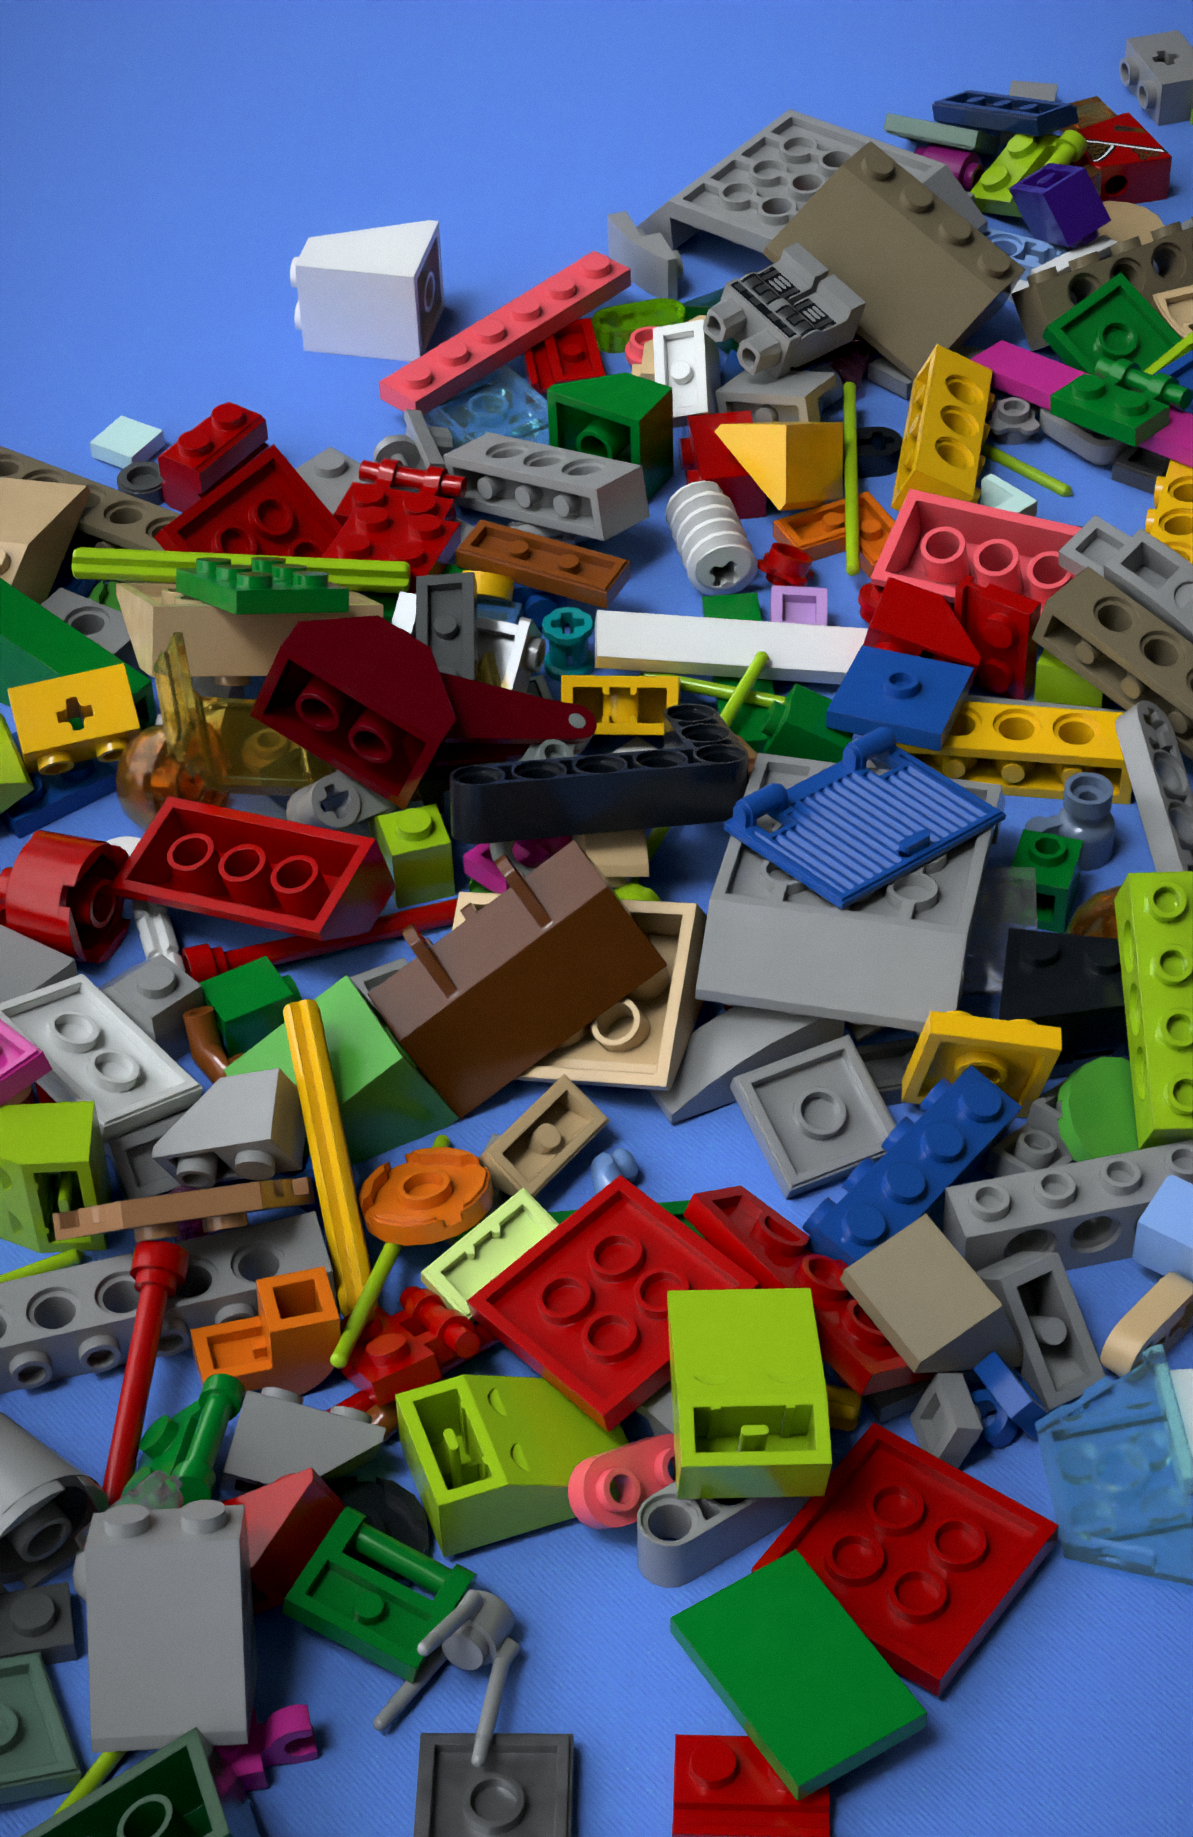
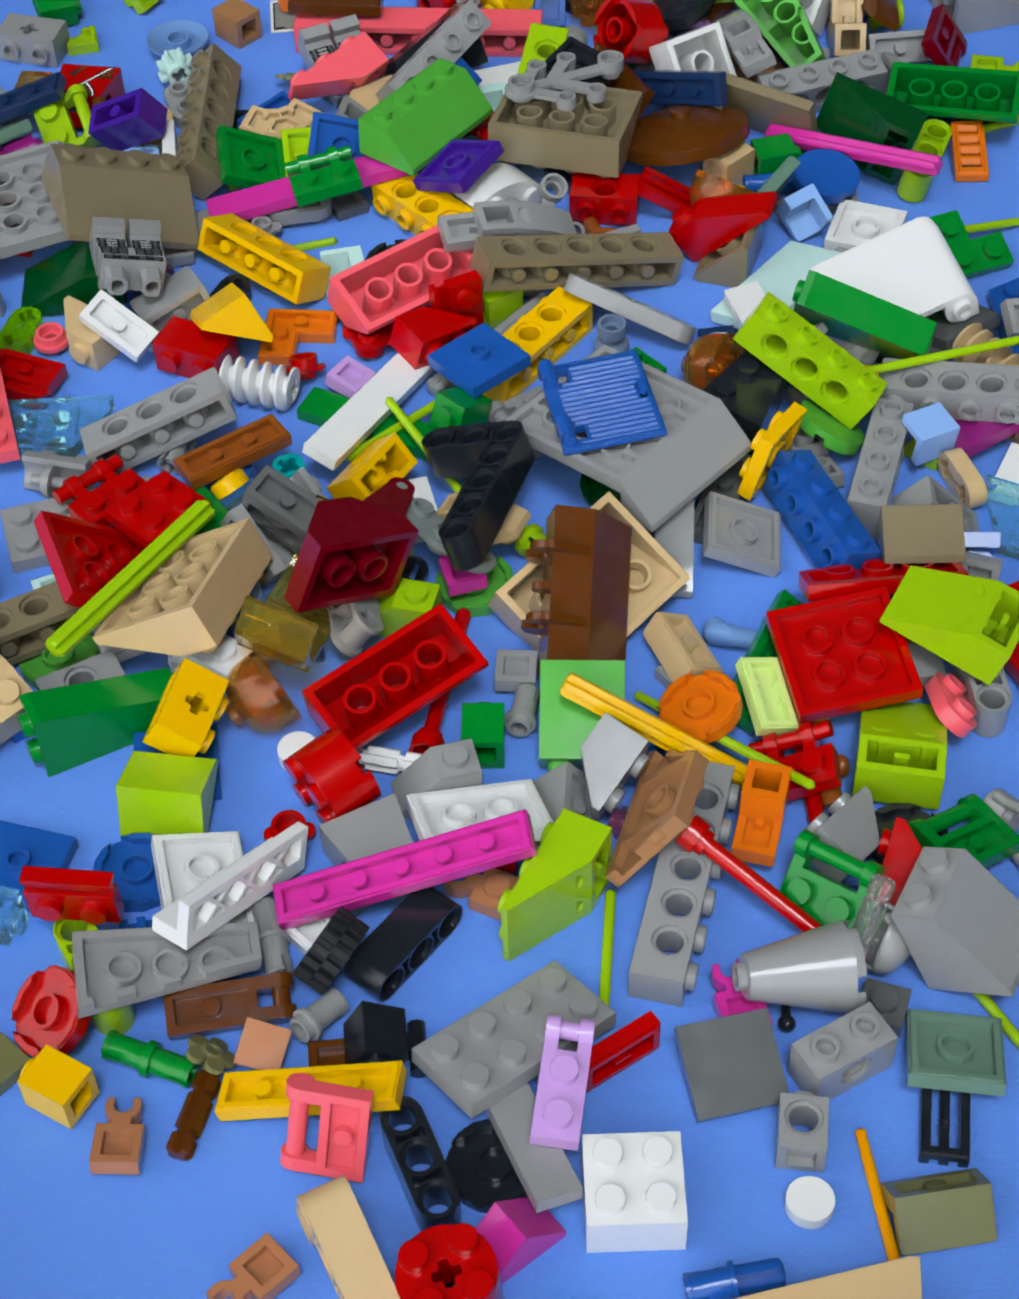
camera: 60 degrees left, 5 degrees up
(206, 1042) = (505, 769): dark orange arm -> none
(262, 588) = (201, 558): green plate -> none
(617, 420) = (137, 369): green slope -> none
(851, 479) = (277, 315): lime axle -> none

